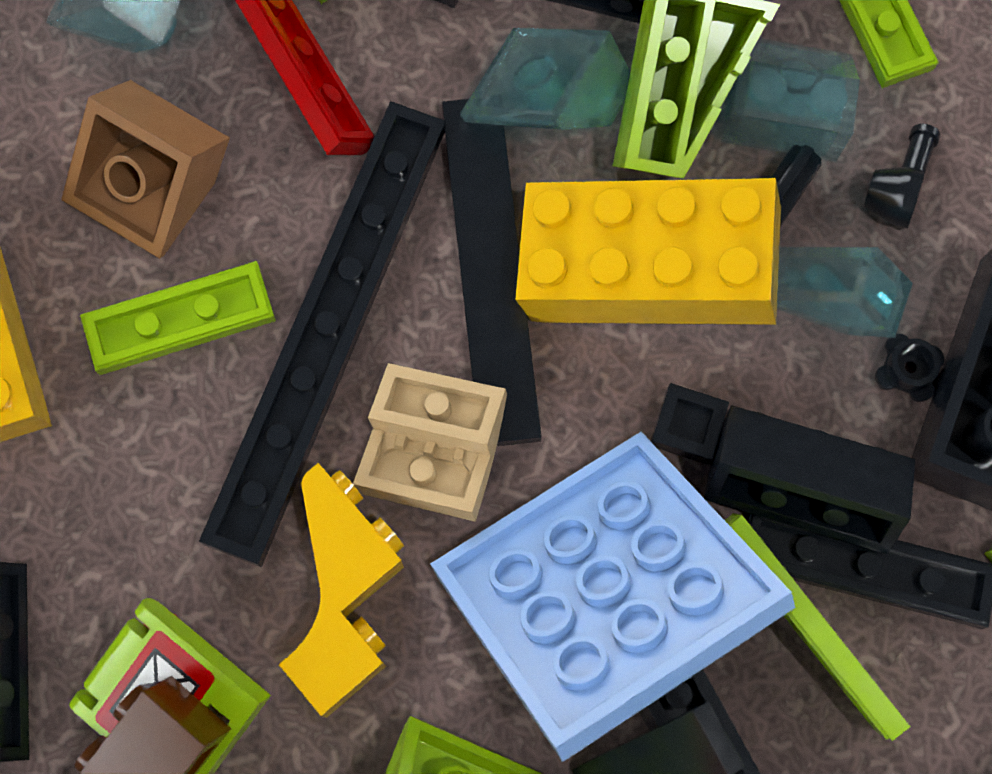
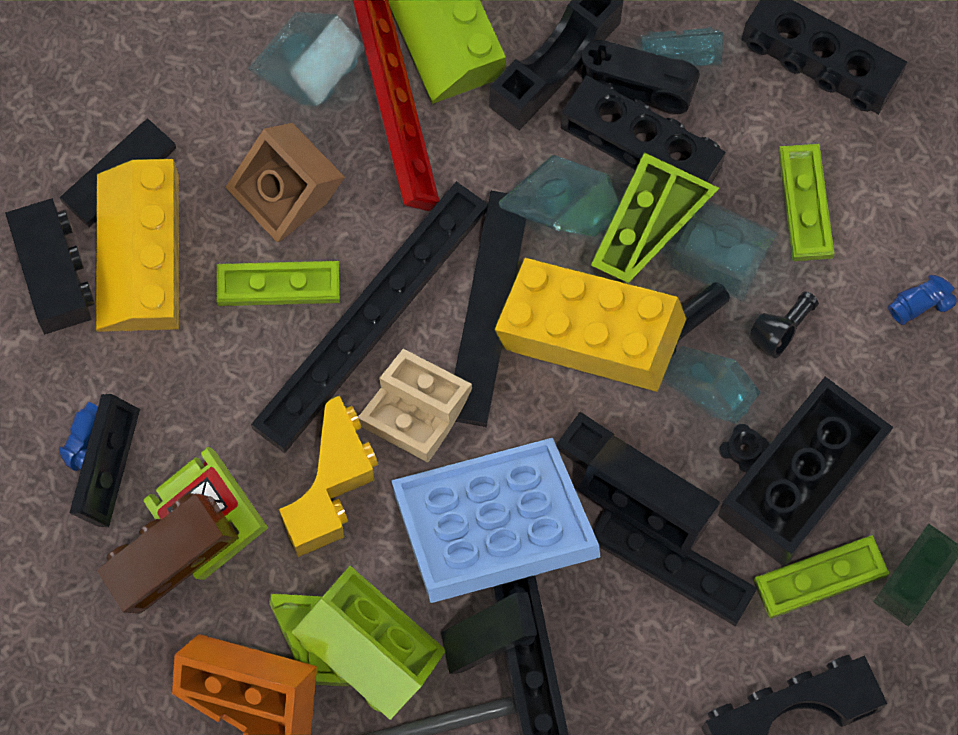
camera: 20 degrees right, 5 degrees down
(827, 644) = (620, 590): lime tile -> none

